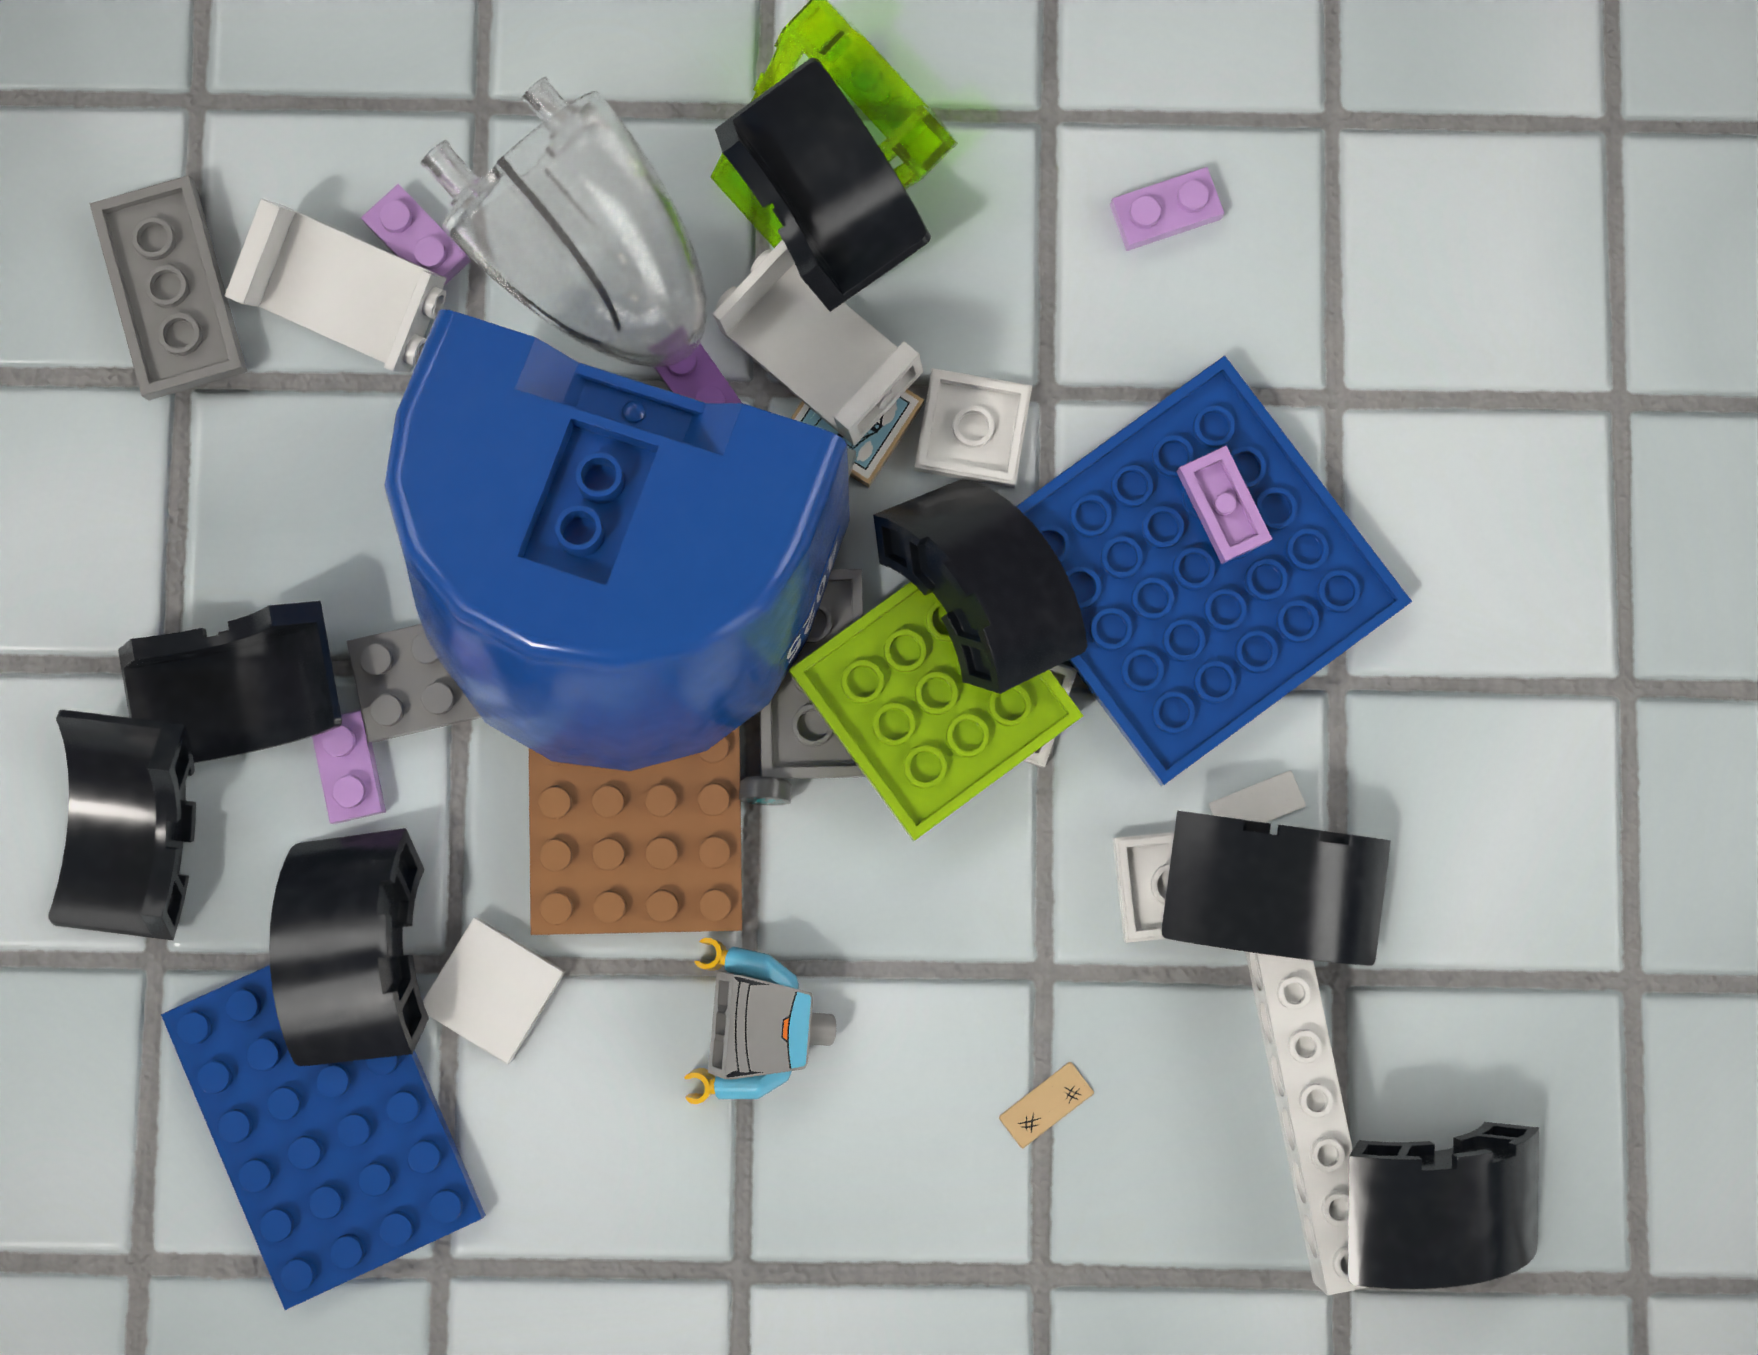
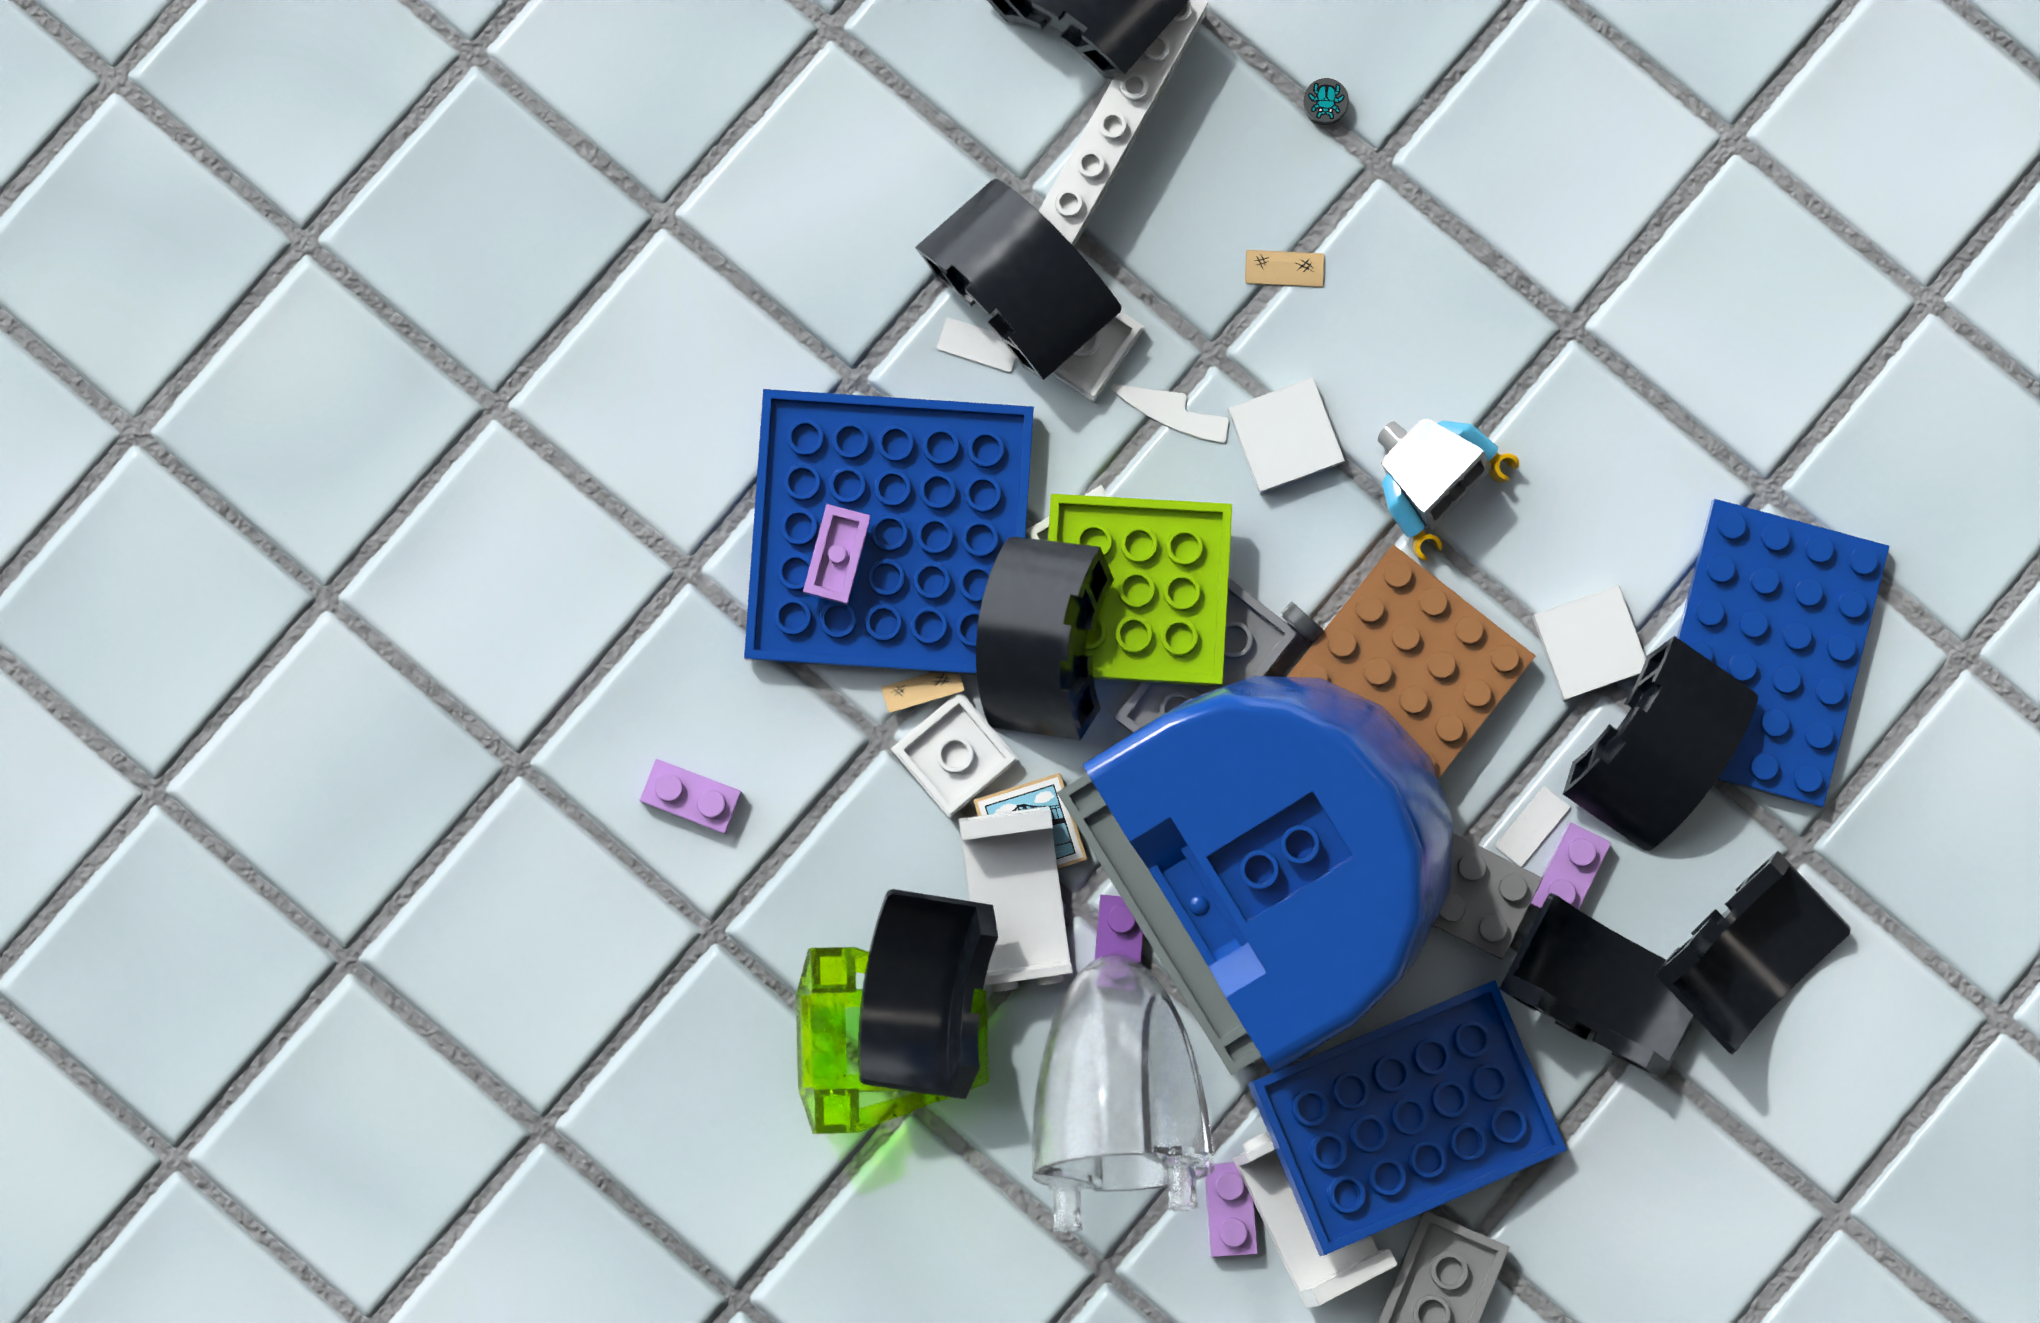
camera: 140 degrees left, 0 degrees up
(303, 429) = (1407, 1117): none -> blue plate
(415, 783) = (1532, 826): none -> white sticker
(918, 951) = (1286, 435): none -> white tile
(1039, 887) = (1170, 410): none -> white sticker
(1049, 457) = (921, 690): none -> tan sticker
(1138, 1294) = (1325, 101): none -> tile

